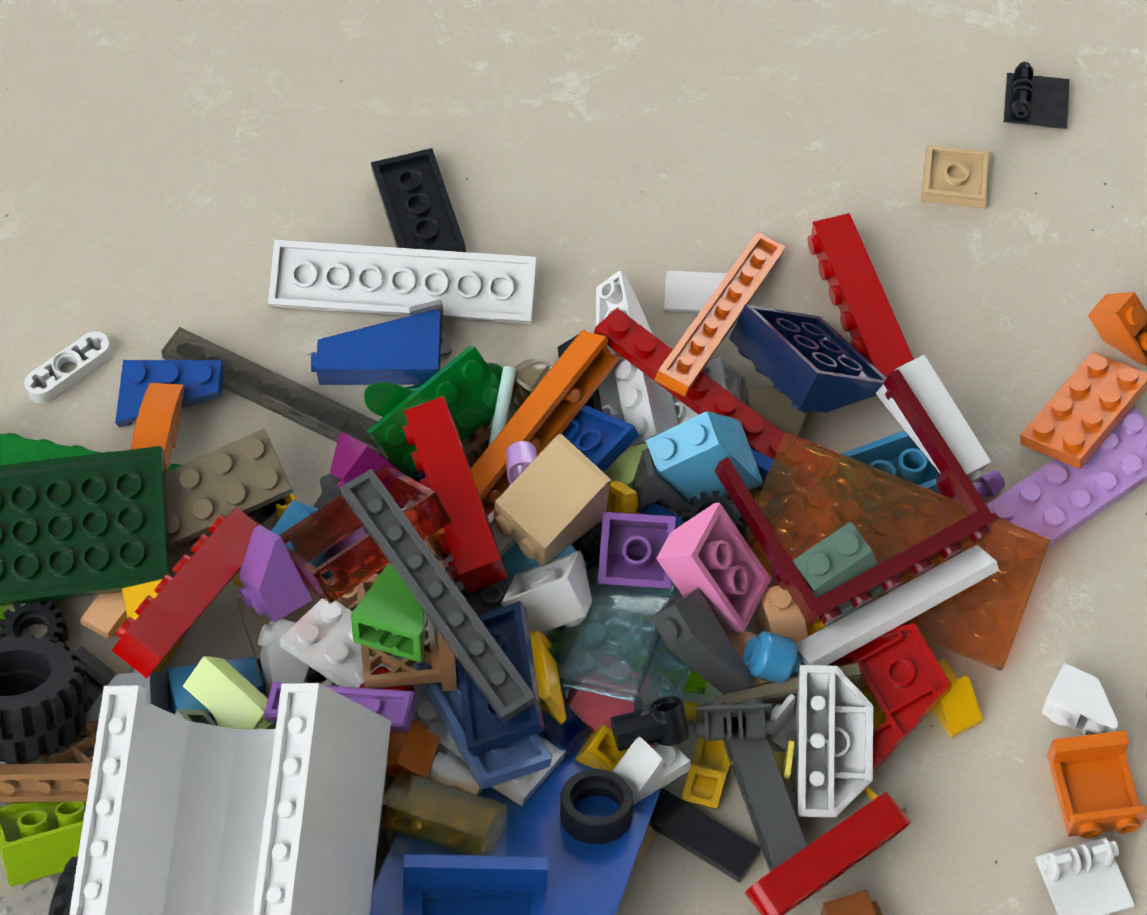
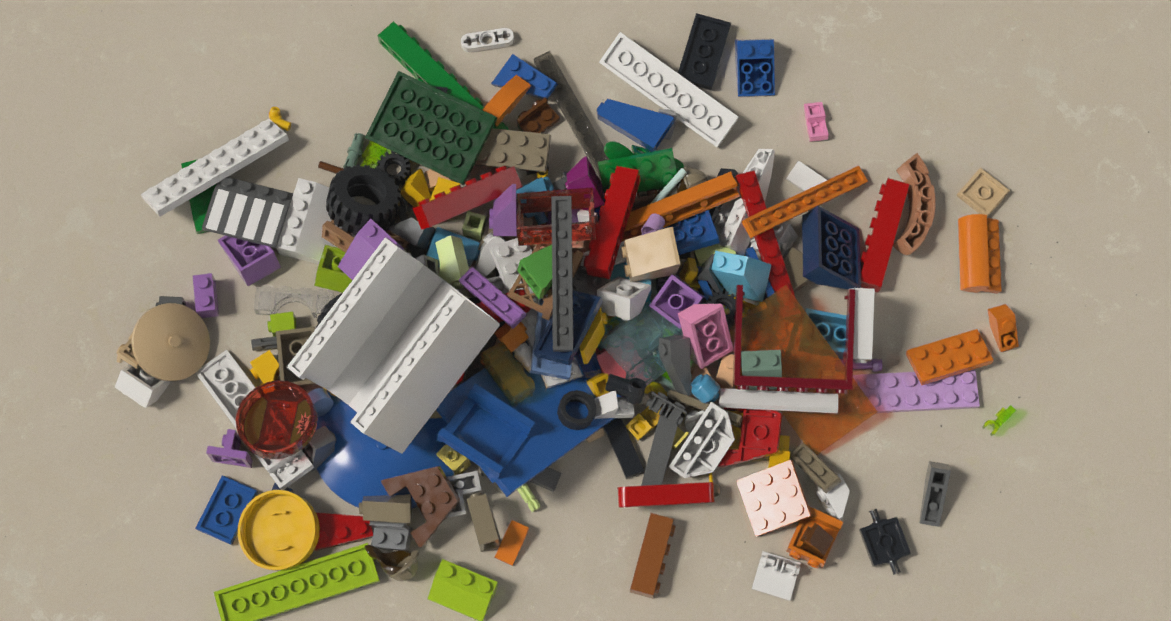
camera: 30 degrees right, 15 degrees up
(65, 767) = (363, 247): none -> medium lavender slope
(93, 639) = (415, 188): none -> yellow slope
(223, 425) = (538, 118): none -> reddish brown bracket
(227, 635) = (474, 225): none -> yellowish green brick
(508, 185) = (755, 67): none -> blue slope
(649, 213) = (815, 121): none -> bright pink slope
(884, 234) = (921, 204): none -> nougat brick
(994, 762) = (774, 498): none -> plate
(1015, 253) = (979, 254): none -> orange brick
(1022, 678) = (815, 468): none -> dark tan tile
(1035, 98) = (1057, 175): black hinge -> none
(1108, 781) = (816, 540): none -> reddish brown slope

